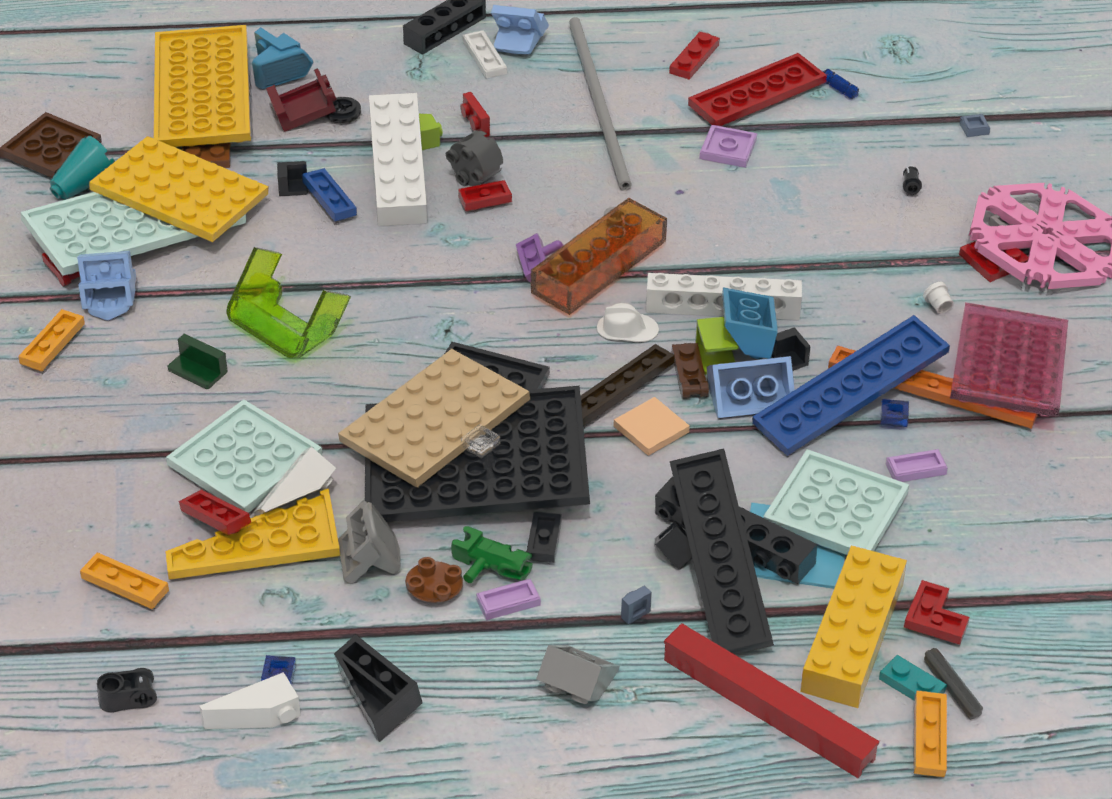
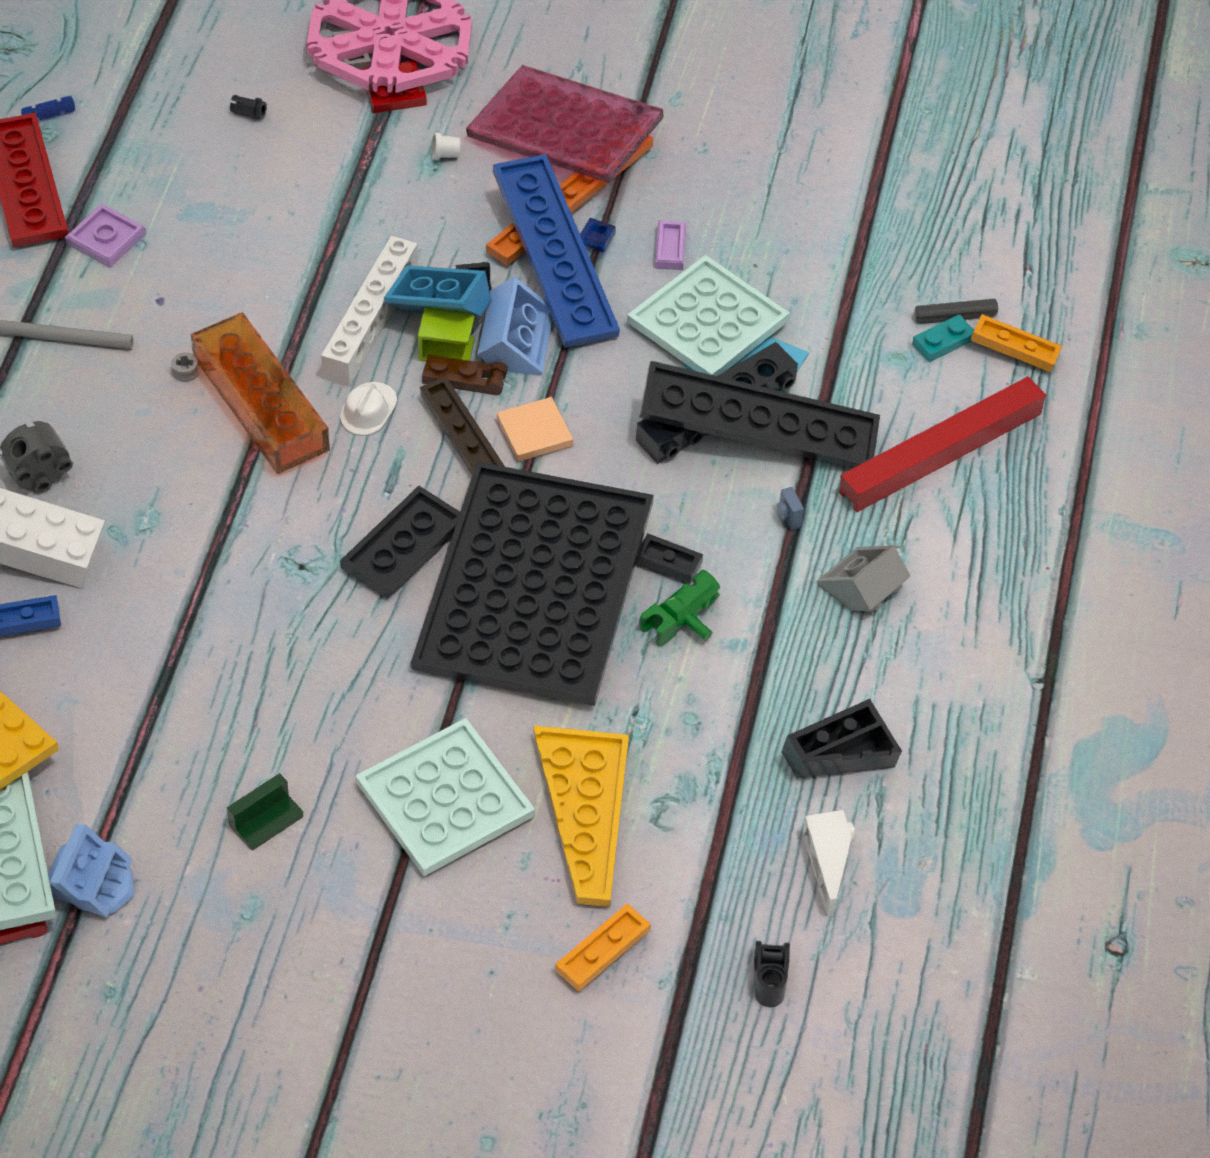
camera: 75 degrees left, 10 degrees up
(51, 340) = (156, 957): light orange plate -> none
(215, 512) = (537, 836): red plate -> none
(257, 310) = (232, 721): clear neon green windscreen -> none
(278, 664) = (784, 828): clear blue plate -> none
(303, 477) = (520, 753): white slope -> none
(367, 543) = (640, 706): light grey piece -> none
(424, 419) = (470, 601): tan plate -> none
(434, 580) = (698, 666): dark orange dish -> none
(480, 441) = (536, 564): clear plate -> none
(485, 195) = (89, 470): red plate -> none
(508, 599) = (740, 612): lavender tile -> none
(532, 252) = (226, 451): medium lavender plate -> none
(674, 544) = (718, 454): black panel -> none
(853, 627) = (873, 353): yellow brick -> none
(929, 617) = (875, 299): red plate -> none
(974, 125) = (177, 29): sand blue tile -> none

